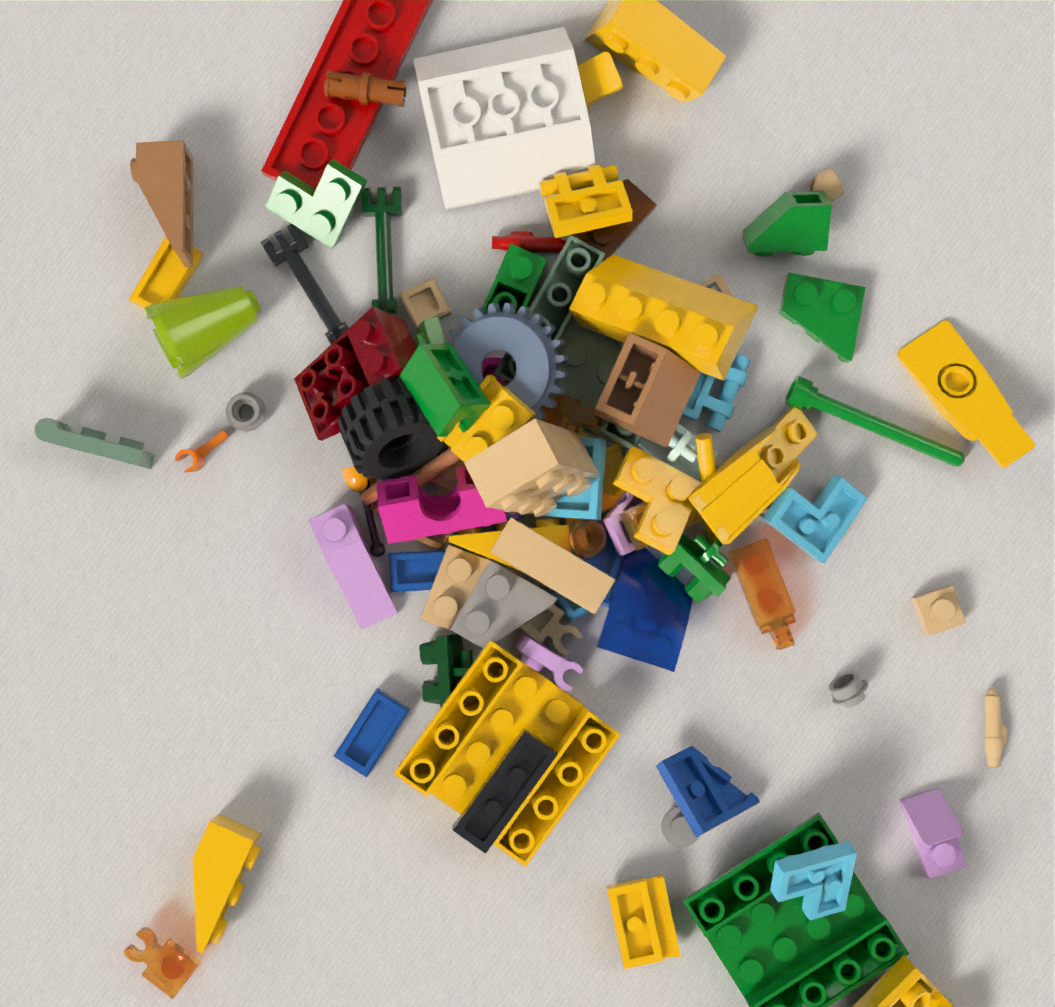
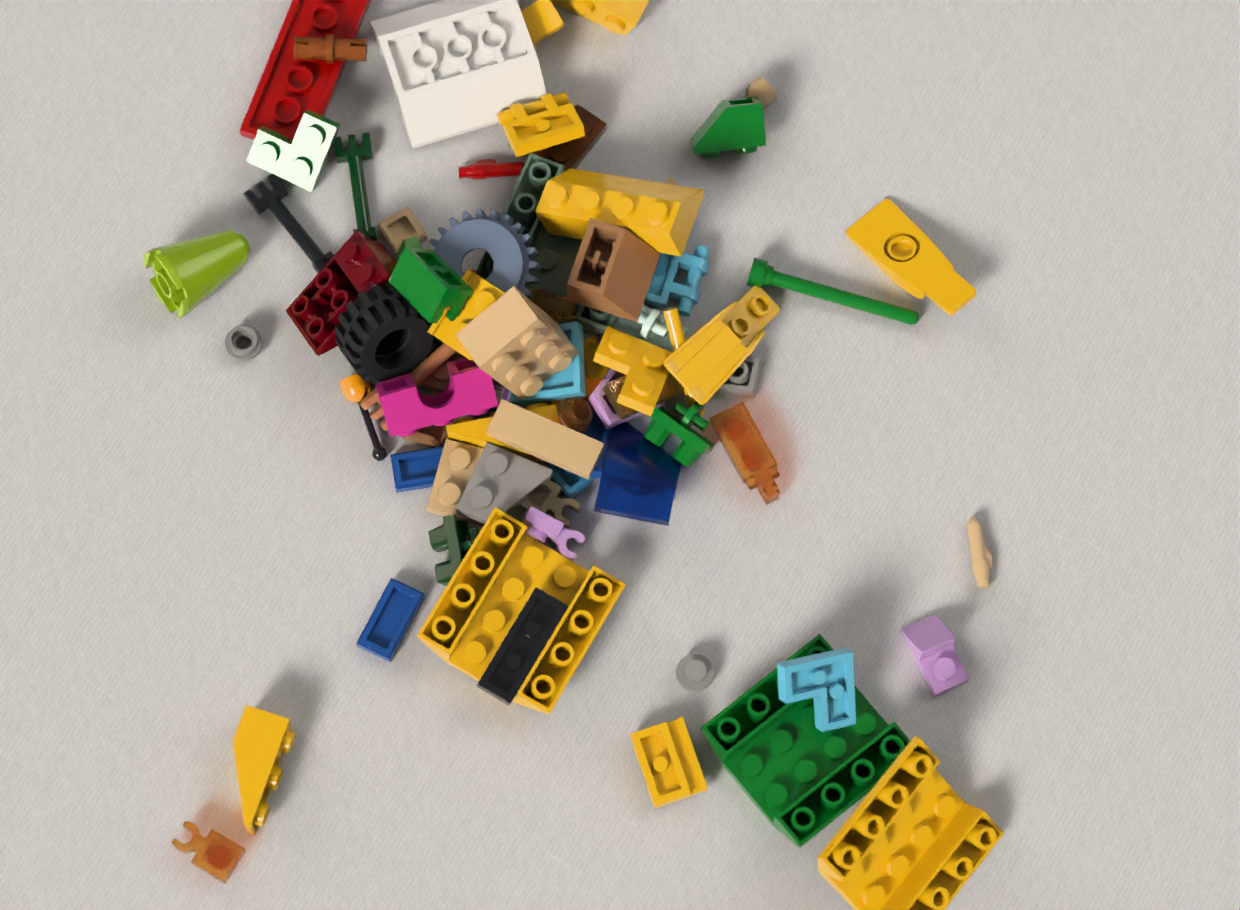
camera: 10 degrees left, 15 degrees down
(93, 442) = (105, 384): sand green plate -> none
(164, 276) = (158, 228): yellow tile -> none
(166, 181) = (153, 153): medium nougat slope -> none
(202, 451) = (204, 383): orange hand -> none
(353, 564) = (358, 466): lavender slope -> none
(517, 279) = (487, 191): green slope -> none
(703, 790) = (711, 634): blue wing -> none
(819, 525) = (786, 386): medium azure plate -> none
(825, 310) = (772, 200): green wing -> none
(848, 689) = (837, 531): light grey plate -> none
(938, 610) = (913, 453): tan plate -> none

